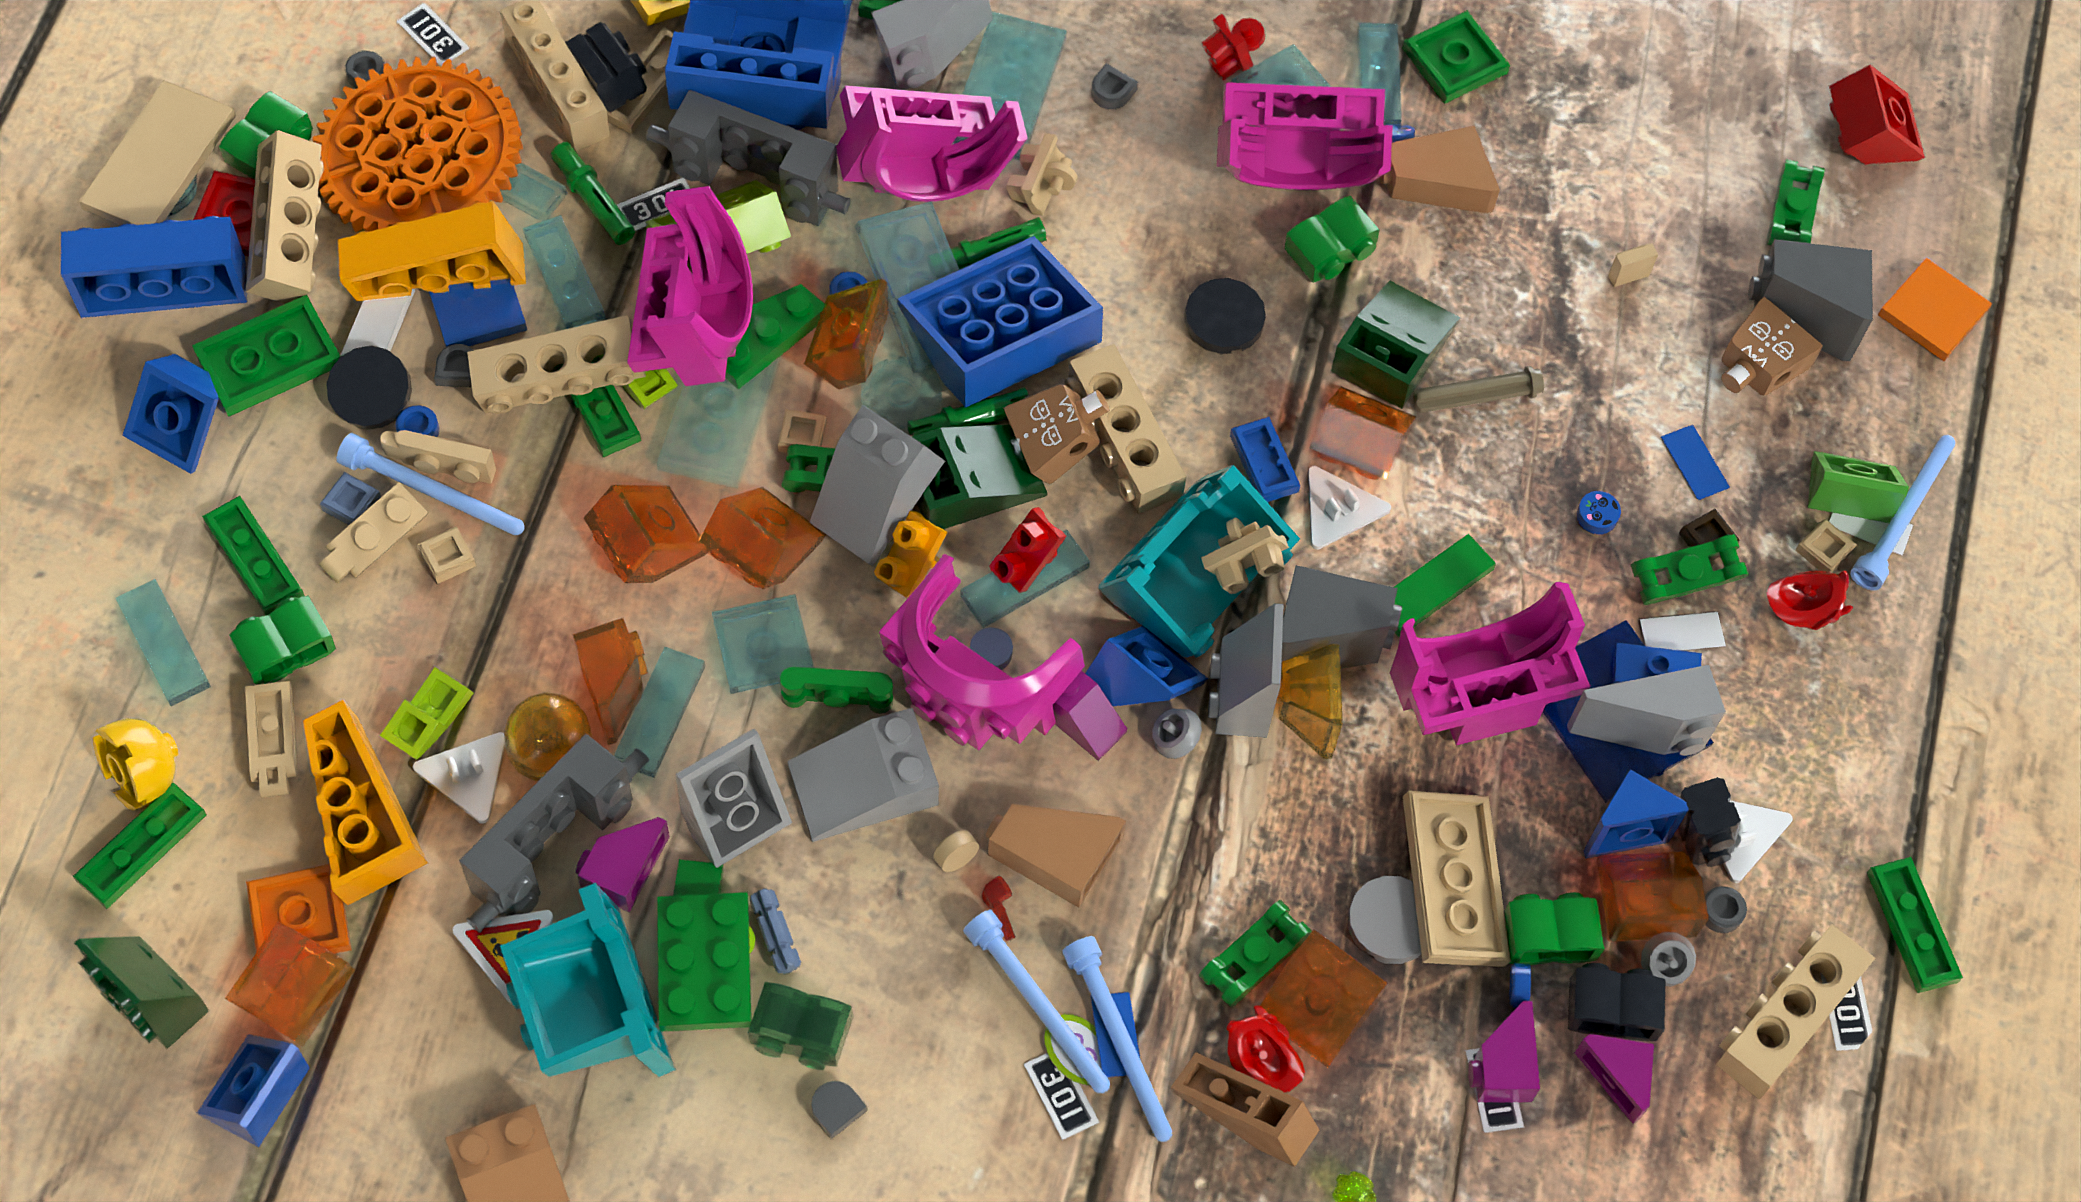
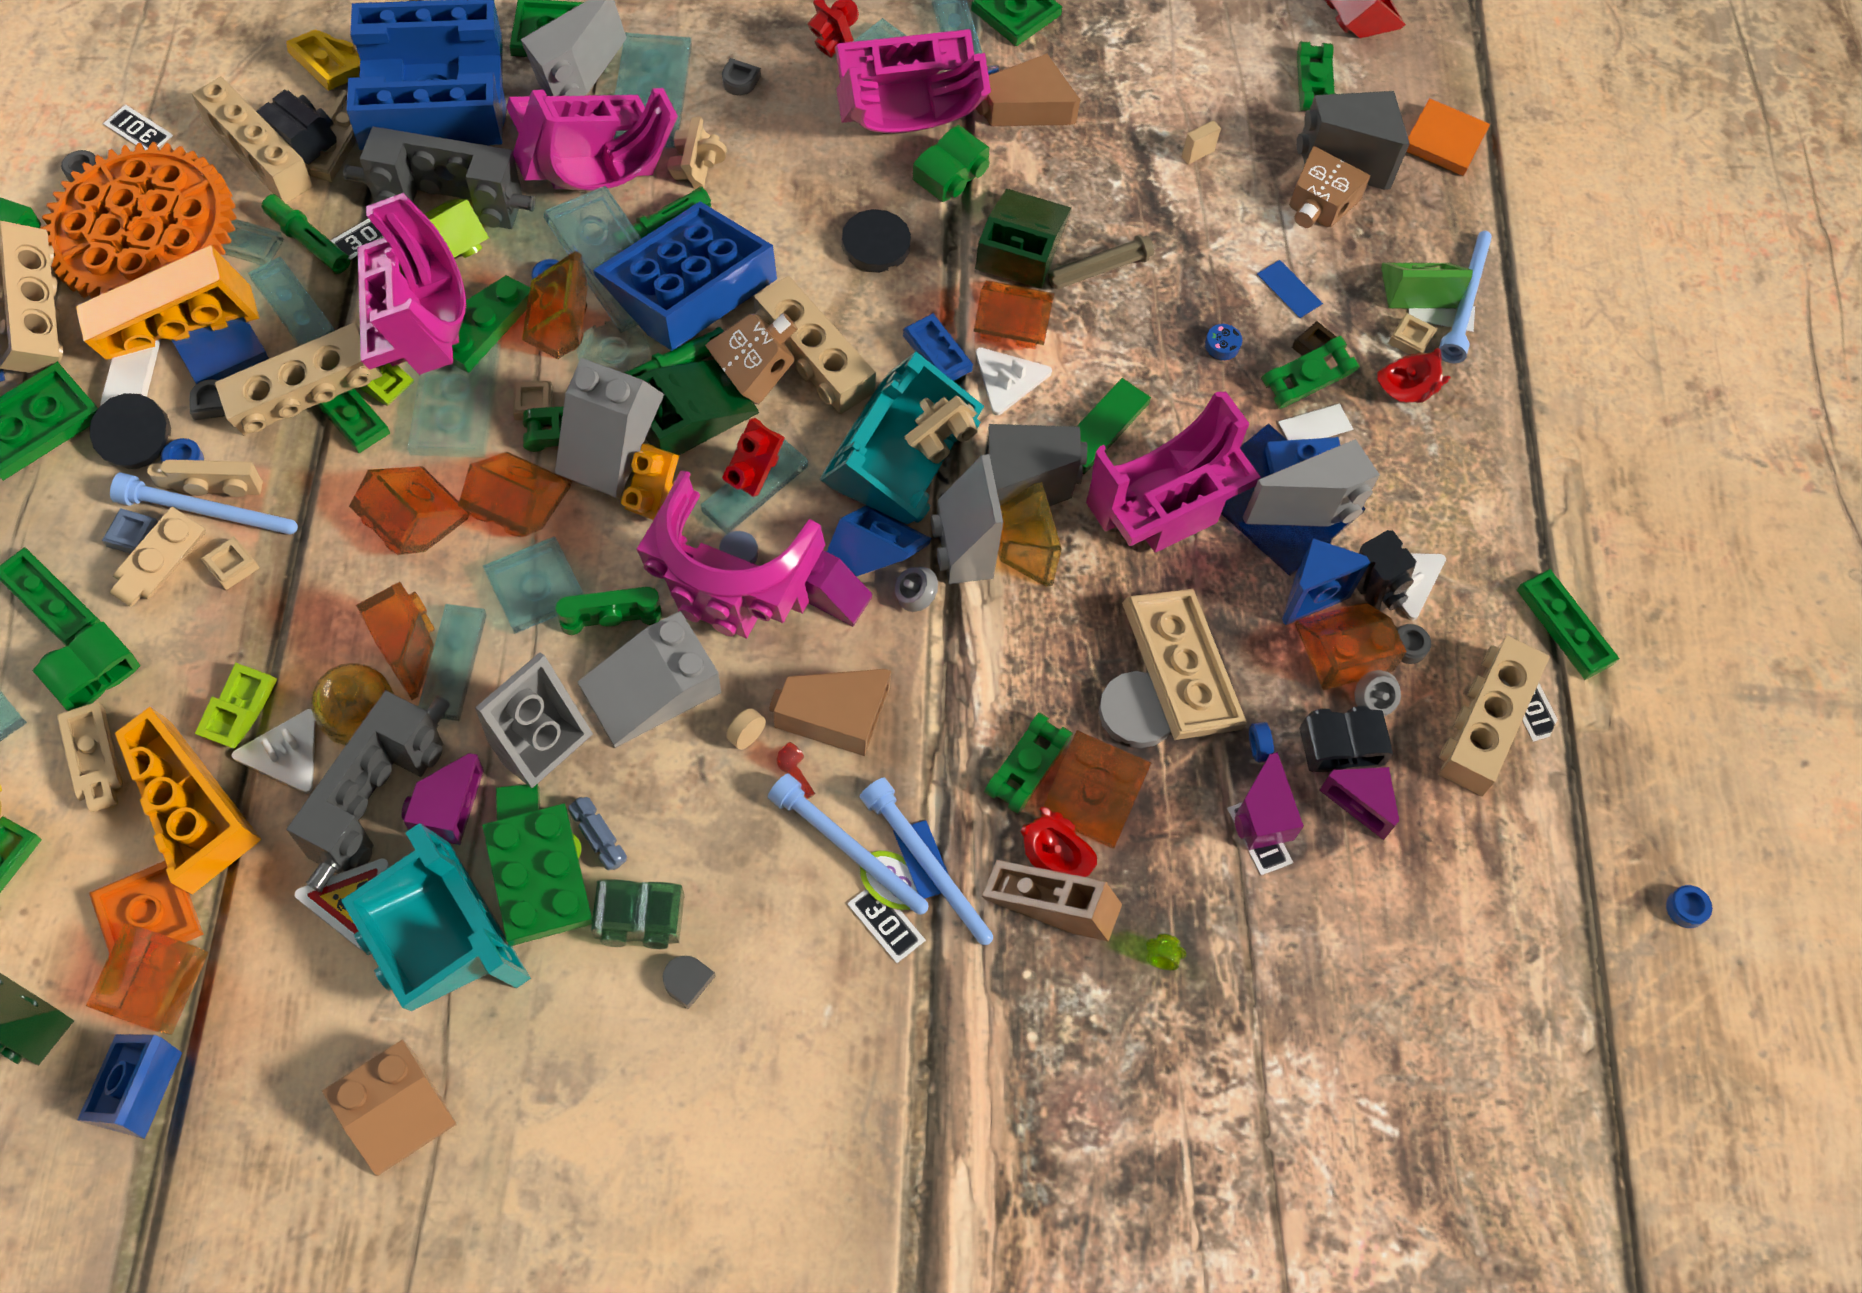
camera: 15 degrees left, 0 degrees up
(1553, 929) = (1277, 689): green brick -> none

